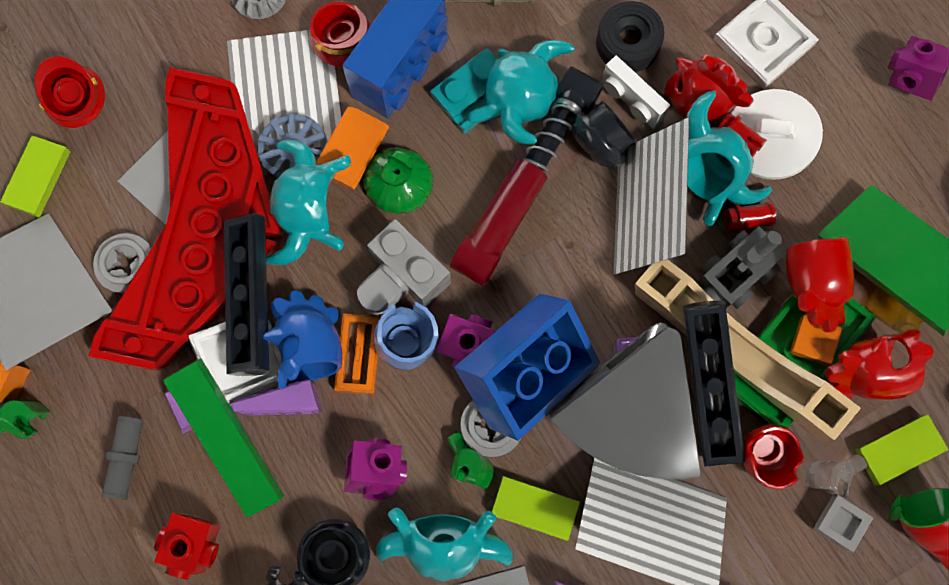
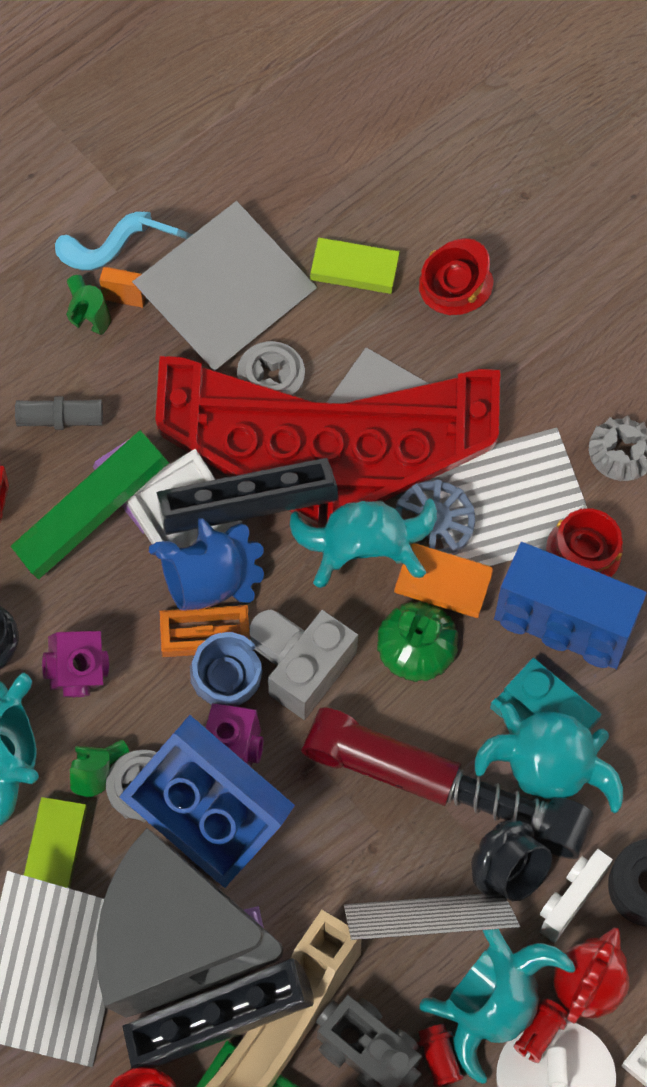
camera: 80 degrees right, 10 degrees down
(292, 400) = (143, 571): medium lavender slope -> none

